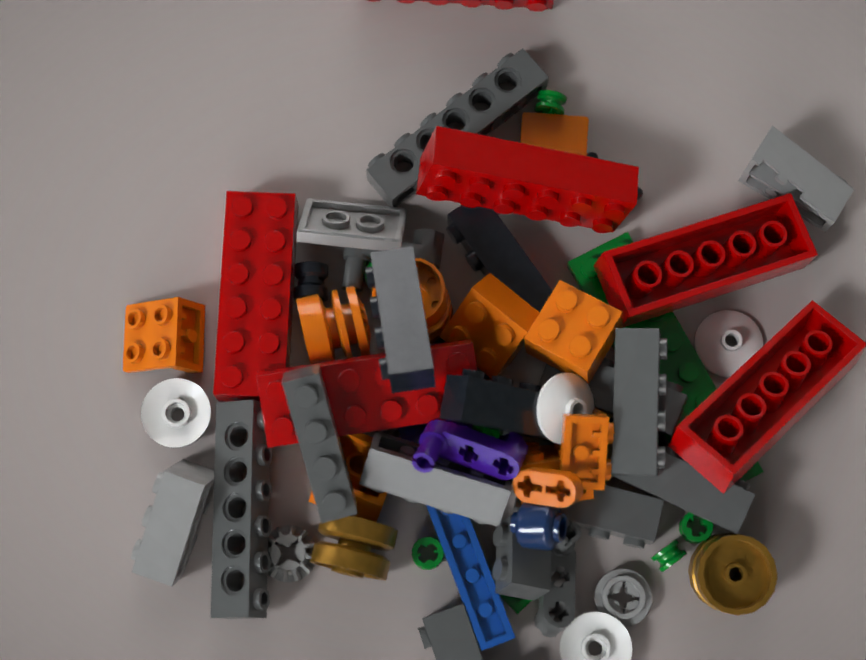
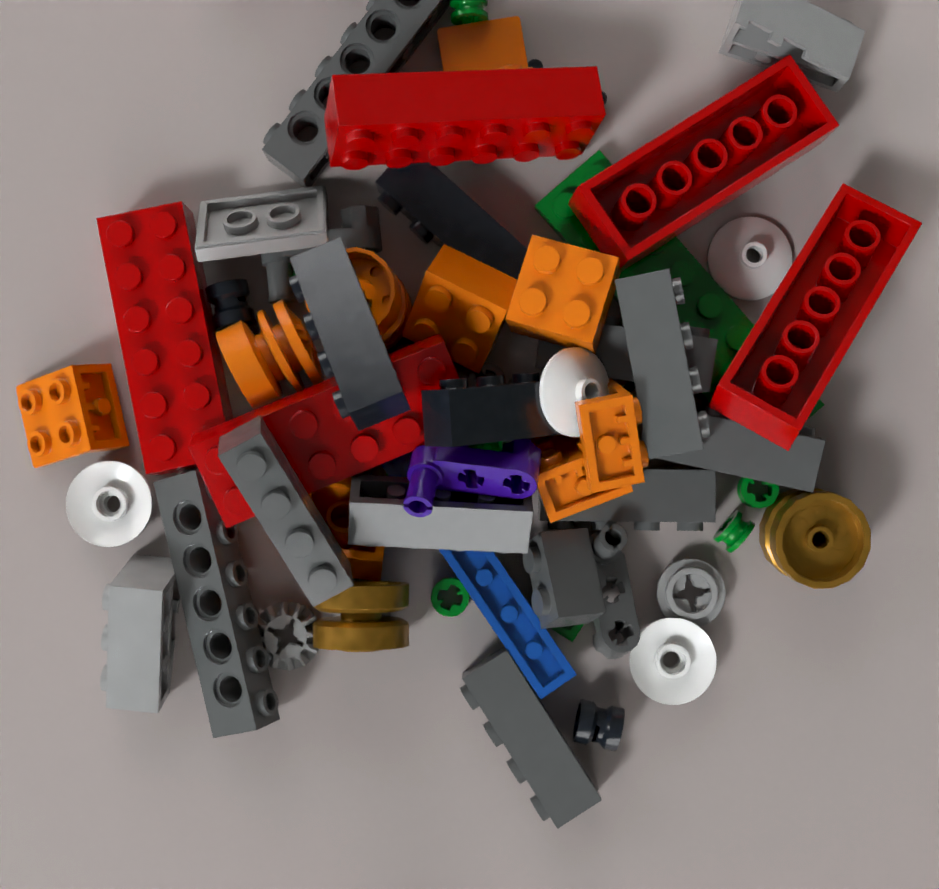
camera: 10 degrees left, 10 degrees up
(539, 526) = (575, 541): dark blue head -> none
(548, 479) = (574, 489): orange beam -> none

